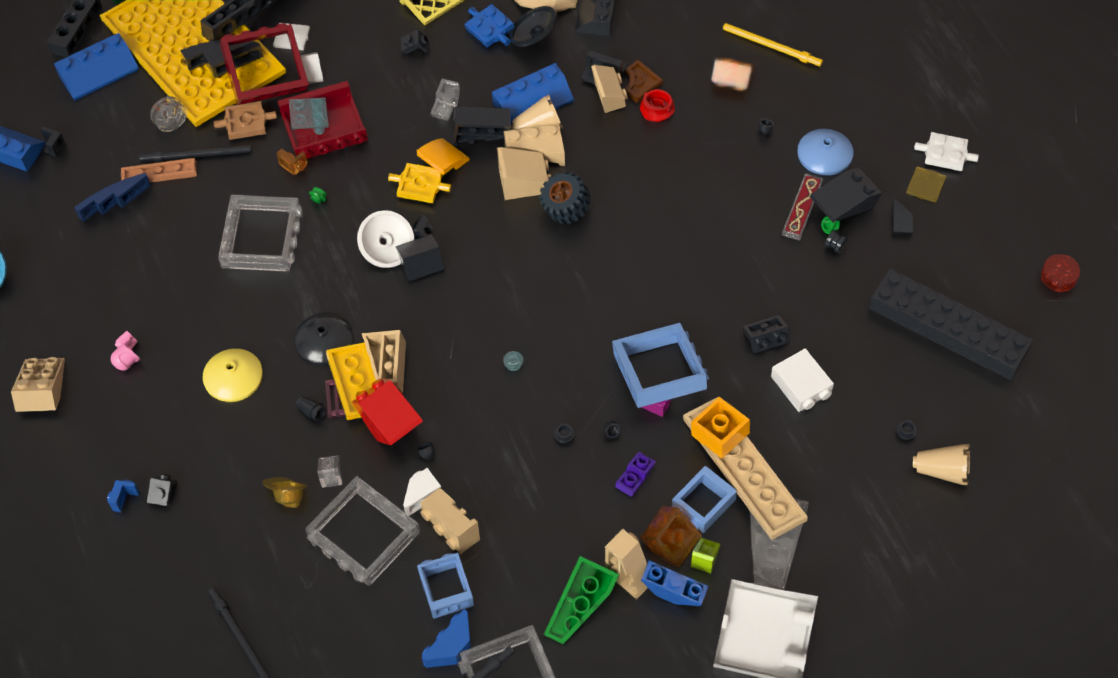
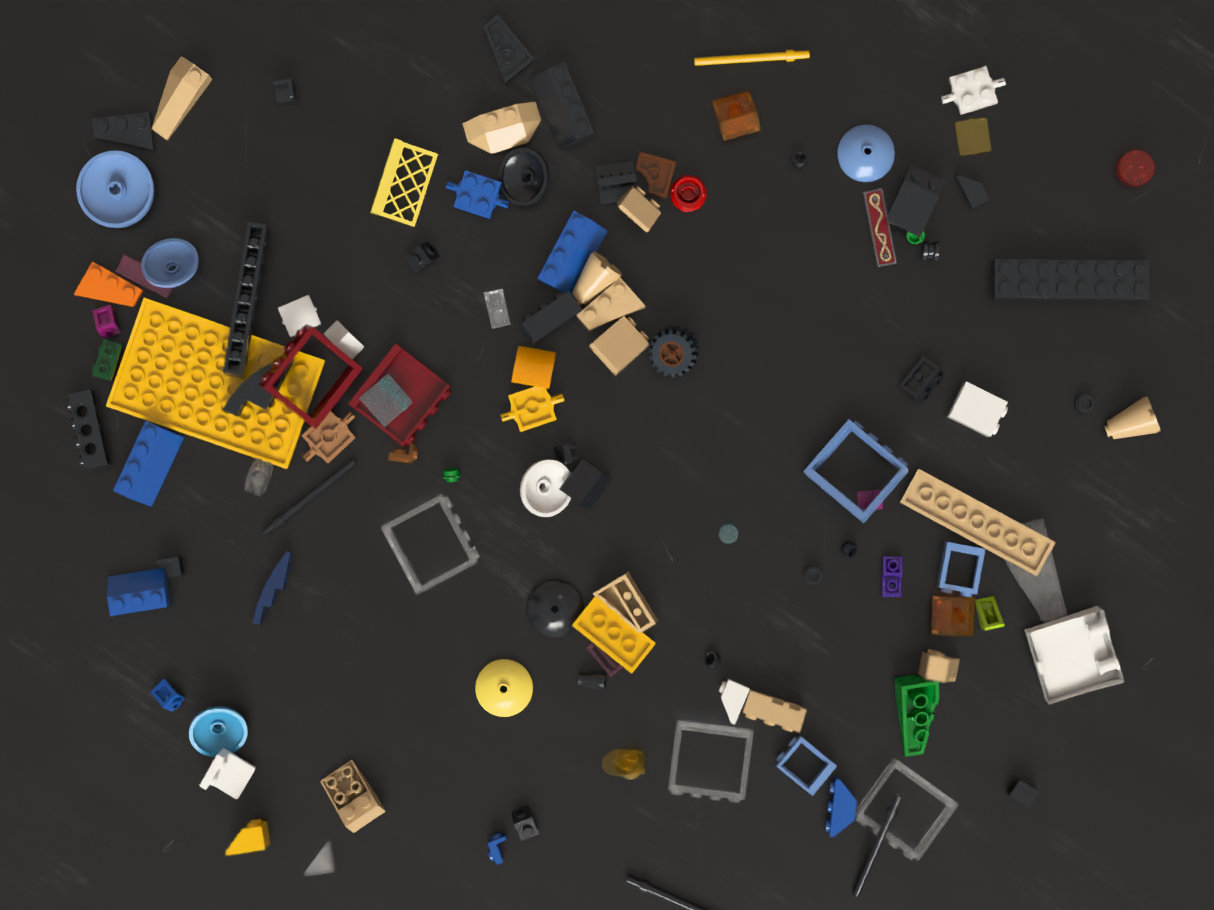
camera: 35 degrees left, 30 degrees up
(123, 356) = (404, 729): bright pink piece -> none
(163, 170) = (290, 535): nougat tile -> none
(329, 471) = (646, 724): clear slope -> none
(386, 411) = (666, 655): red slope -> none
(673, 586) = (983, 659): blue slope -> none
(720, 427) = (944, 505): light orange brick -> none

